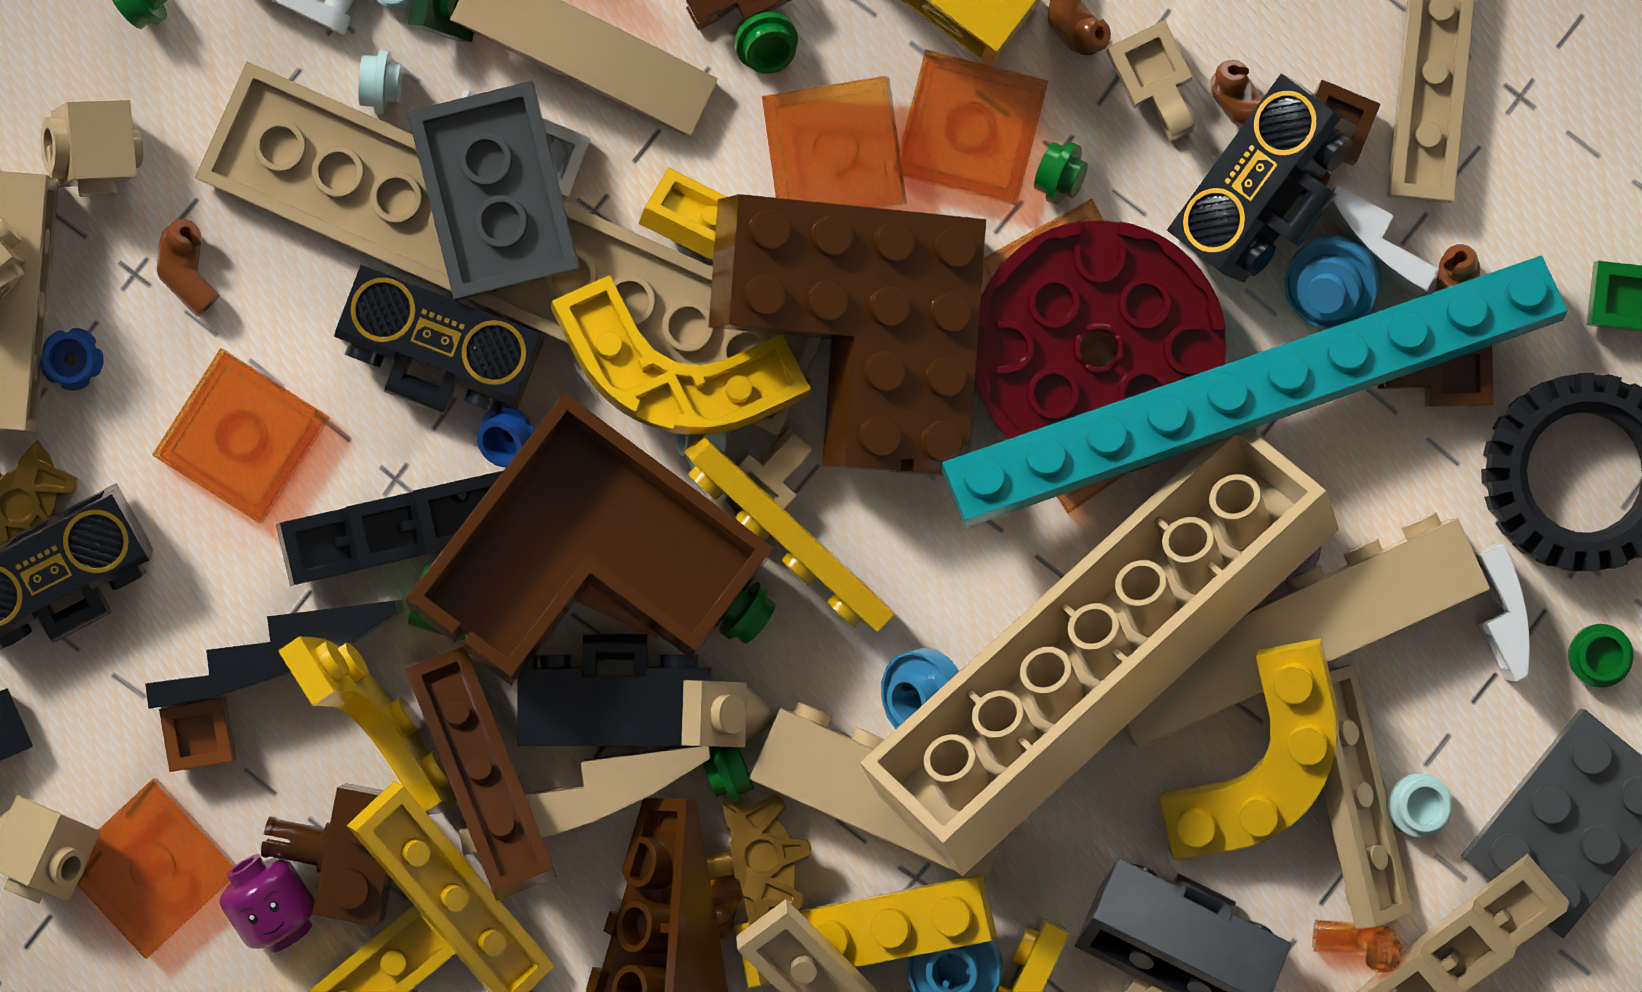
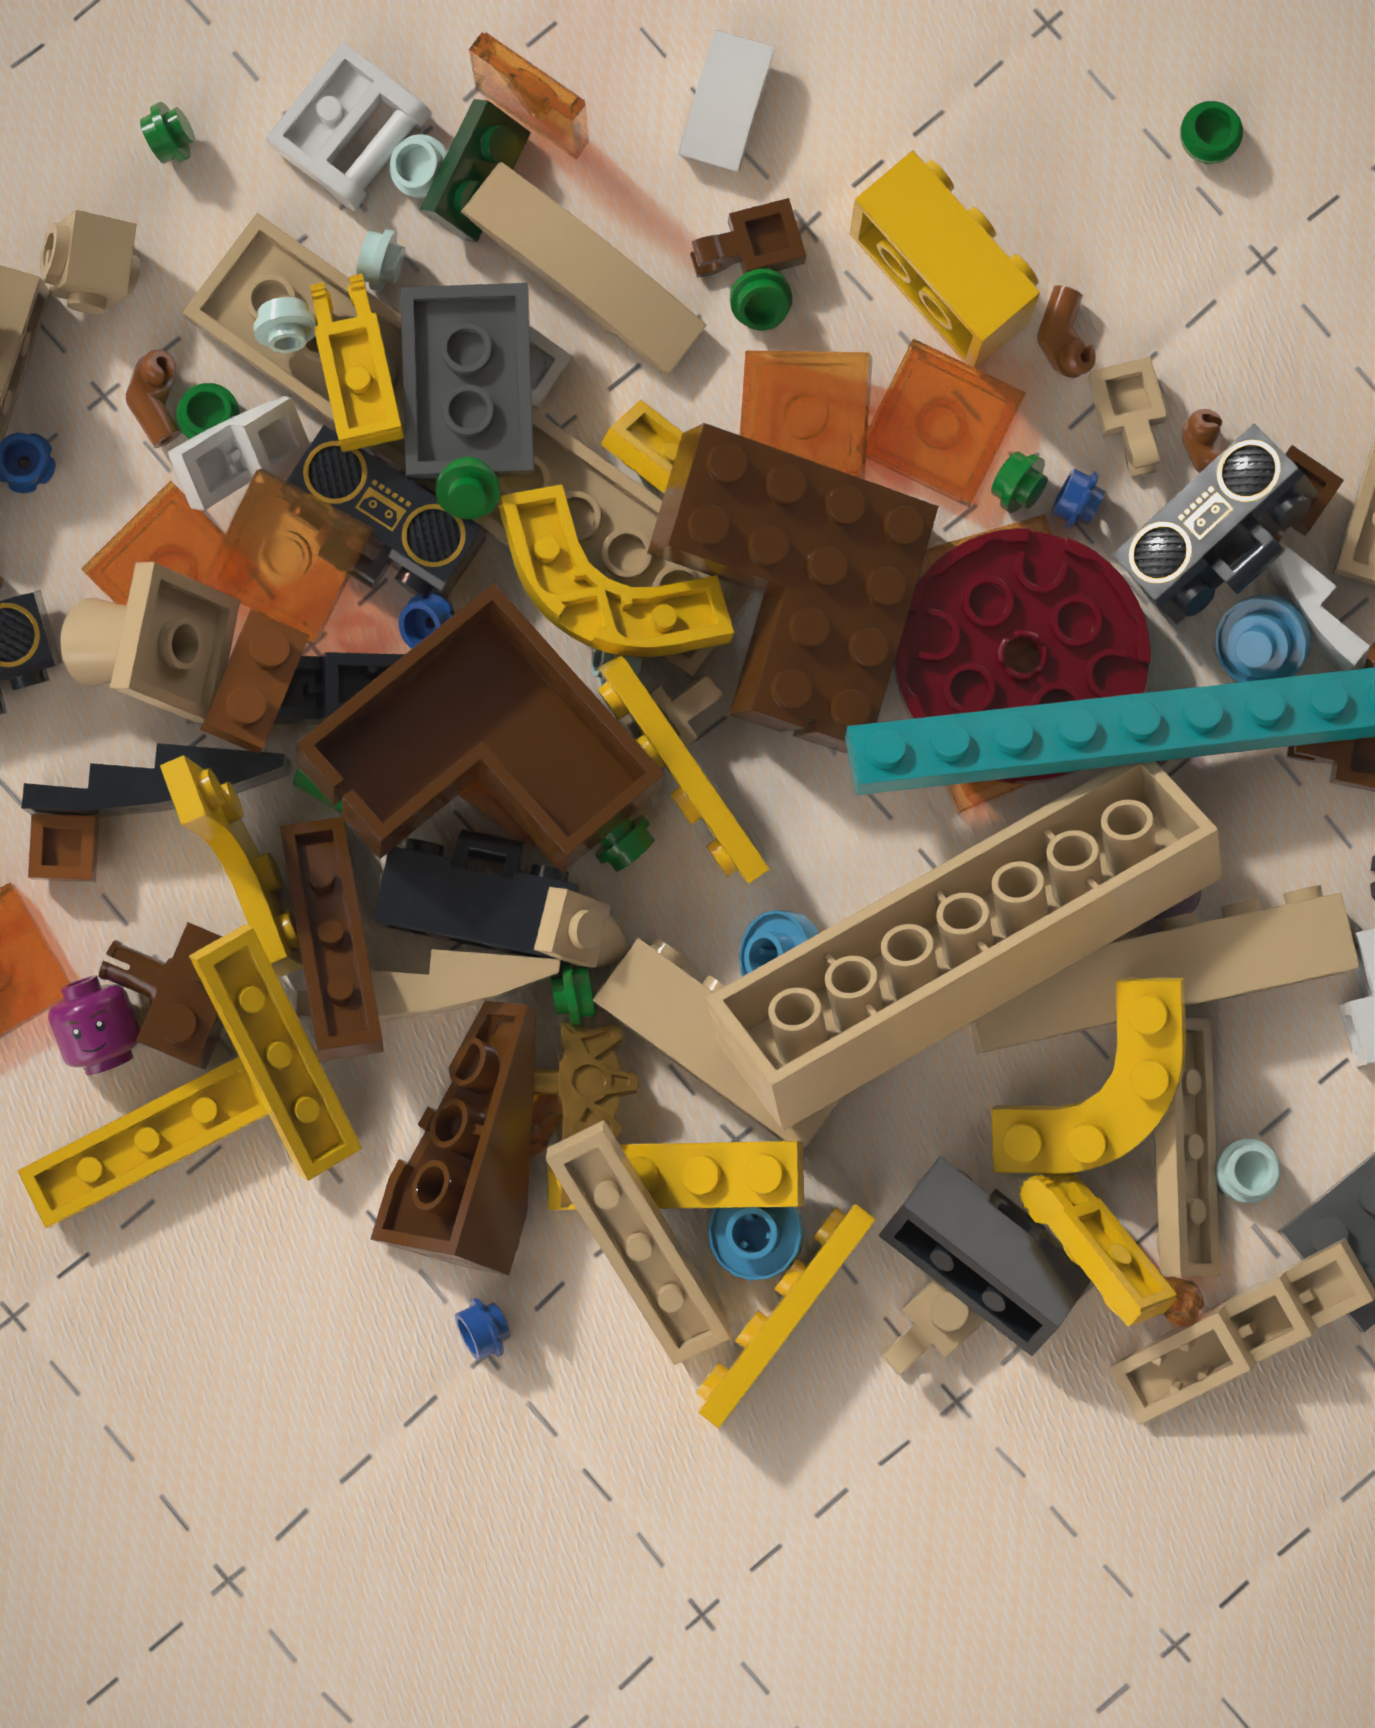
camera: 10 degrees right, 5 degrees down
(243, 272) = (204, 408): none -> green plate
(249, 523) = (159, 646): none -> tan plant
(281, 304) = (232, 451): none -> white slope
(300, 172) = (284, 324): none -> light aqua plate
(350, 536) = (254, 682): none -> dark orange plate
(354, 401) = (287, 554): none -> clear orange tile
(381, 203) = (356, 370): none -> yellow hinge
(518, 300) = (467, 488): none -> green plate
(1121, 176) = (1078, 498): none -> blue plate
(1290, 913) = (1098, 1245): none -> yellow hinge

